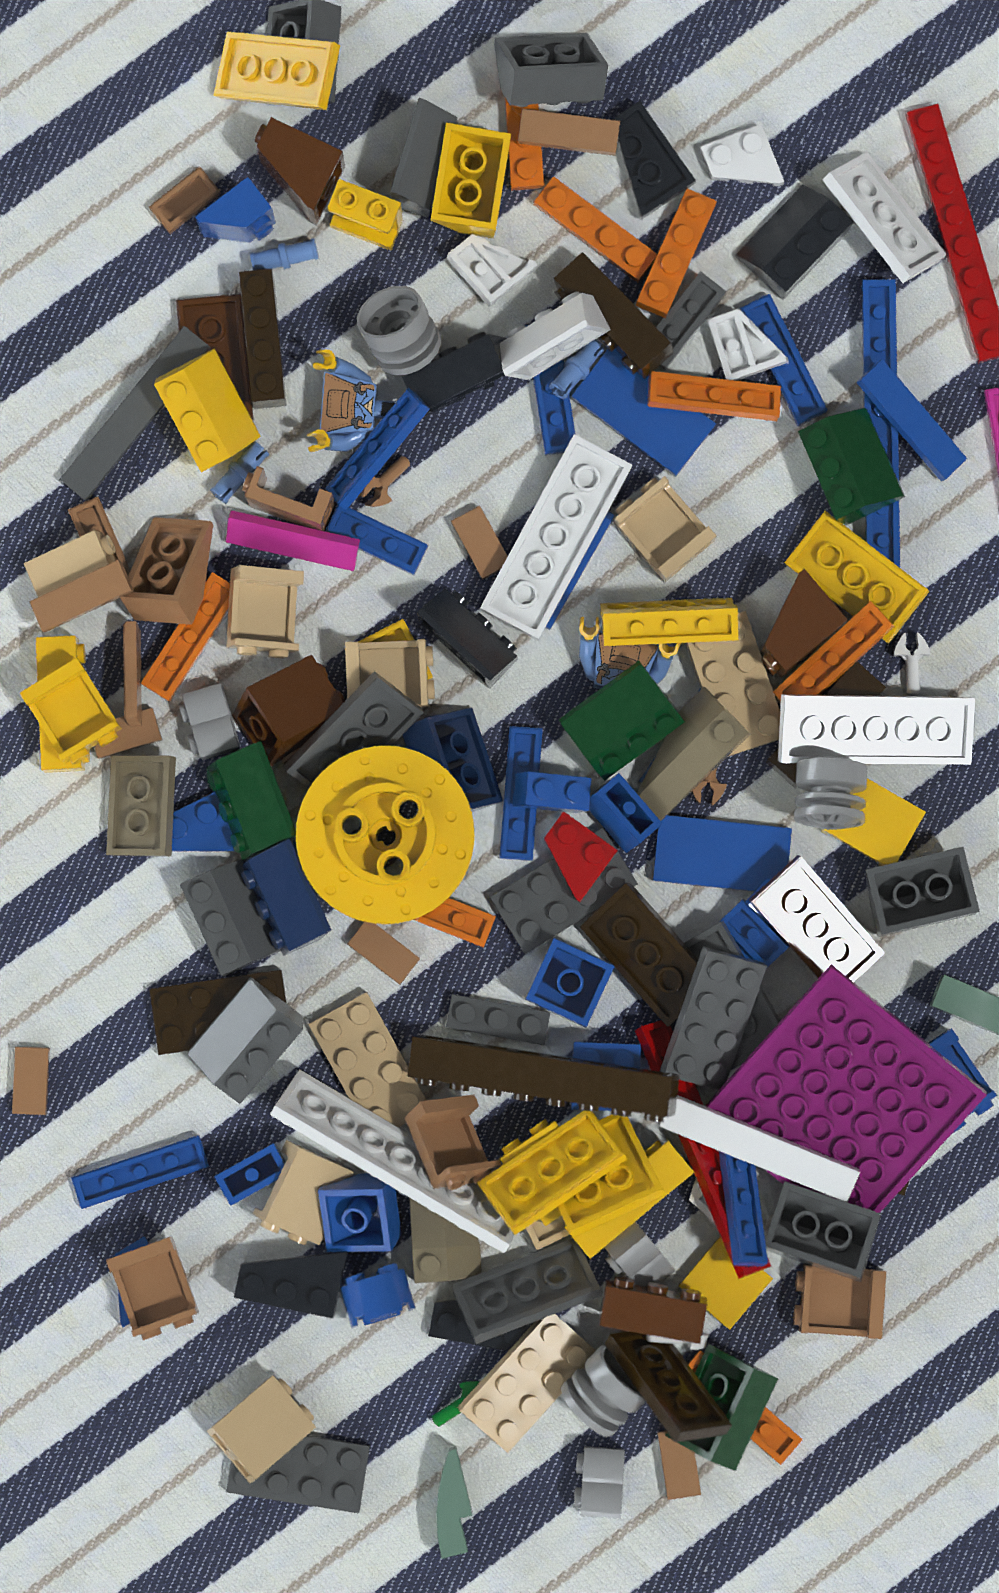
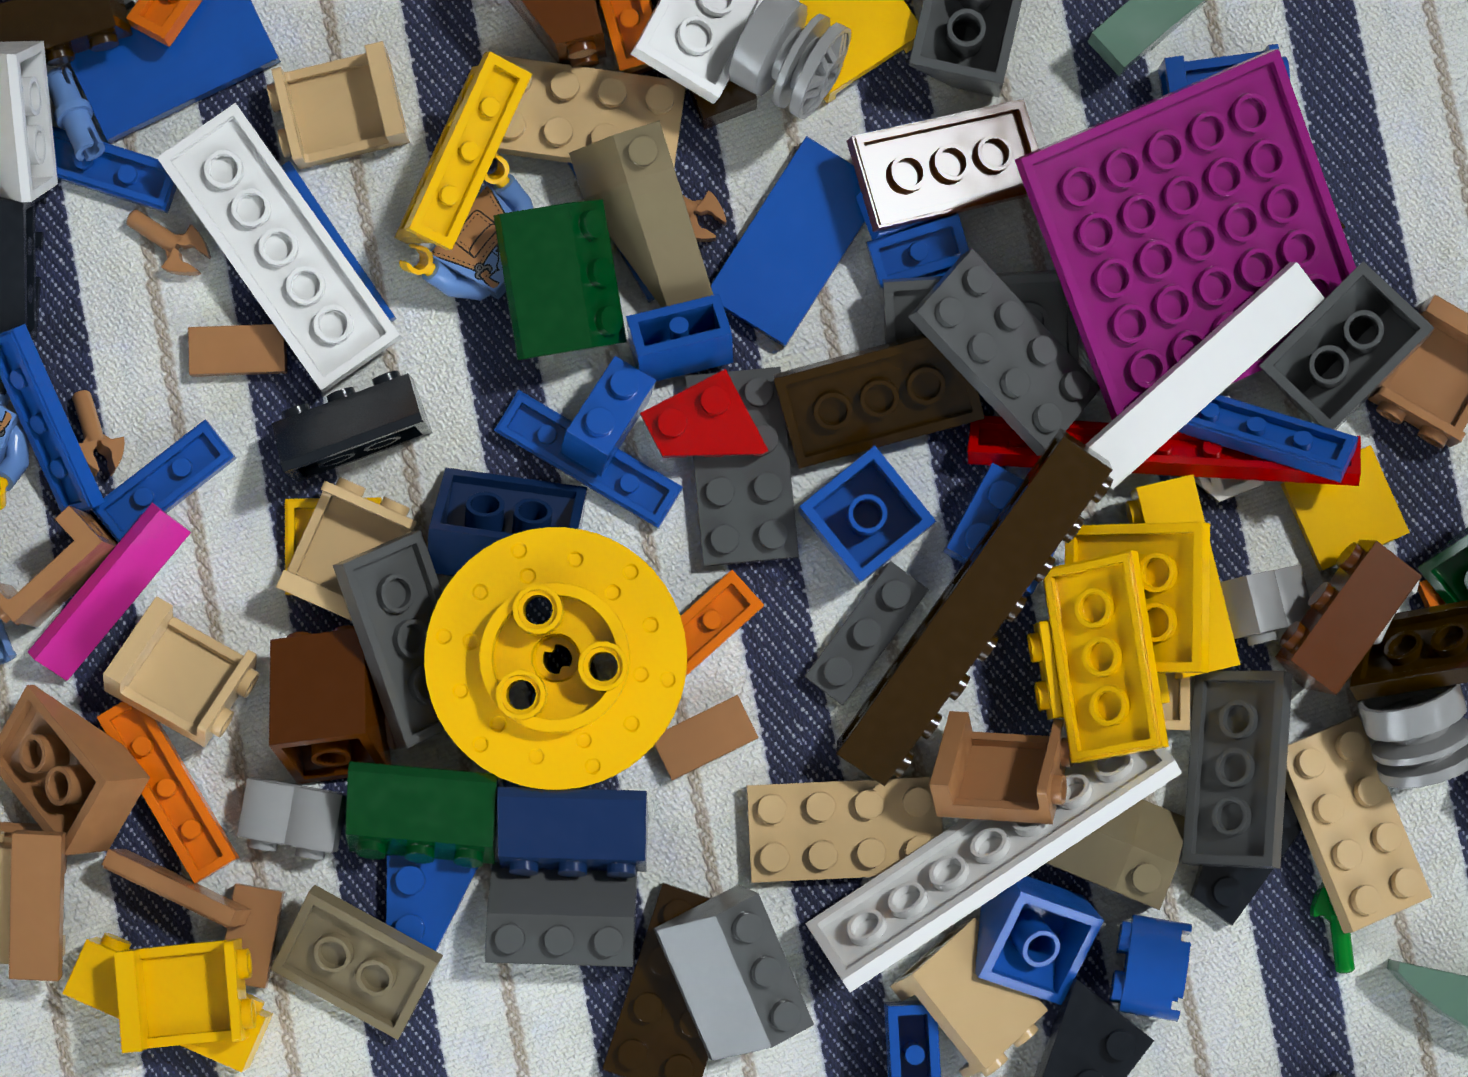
camera: 65 degrees left, 0 degrees up
(527, 466) = (170, 242): none -> medium nougat bar

